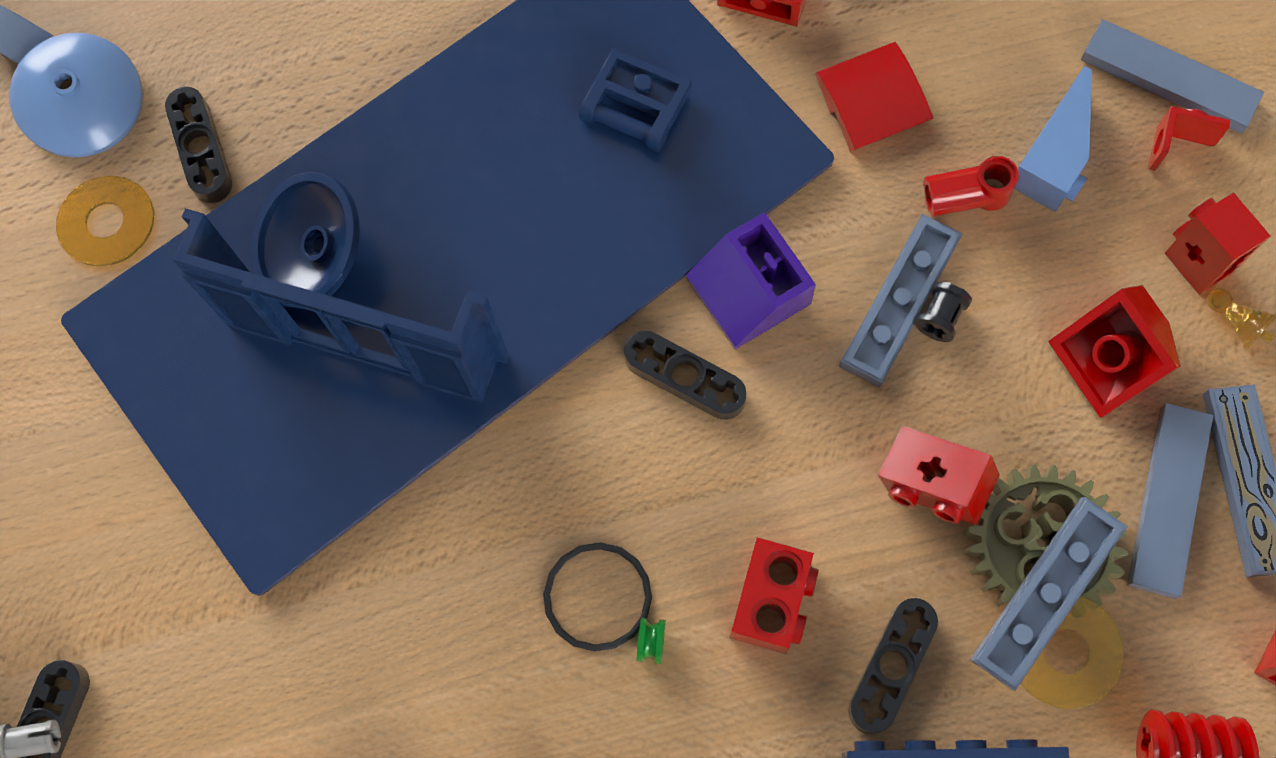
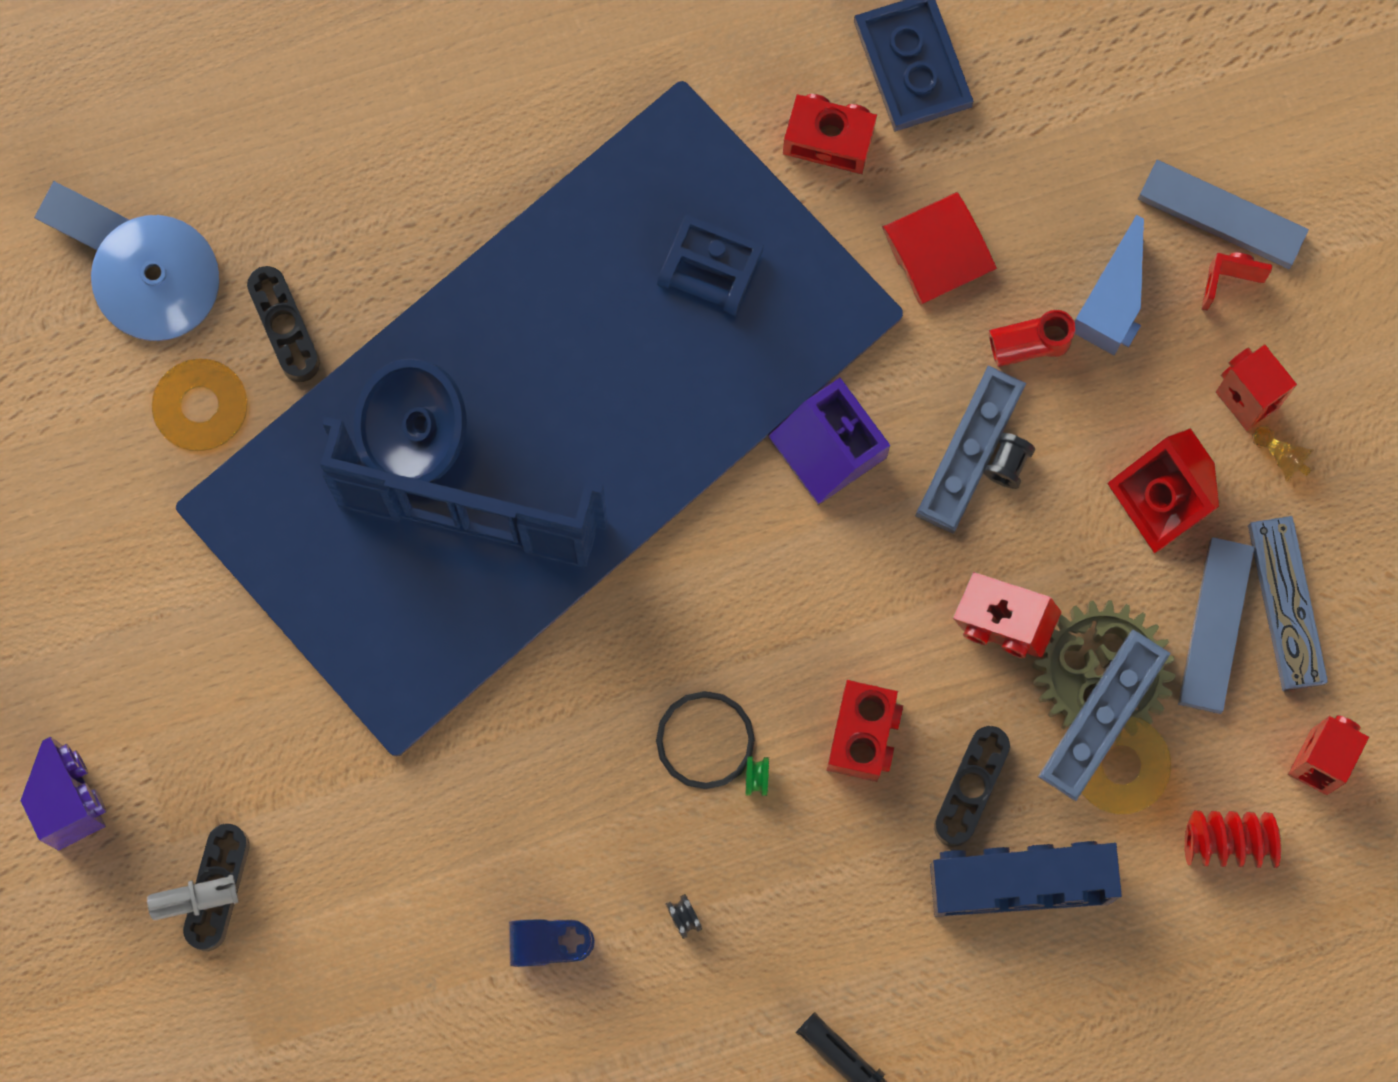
camera: 10 degrees left, 5 degrees up
(649, 371) = (806, 533): black beam -> none

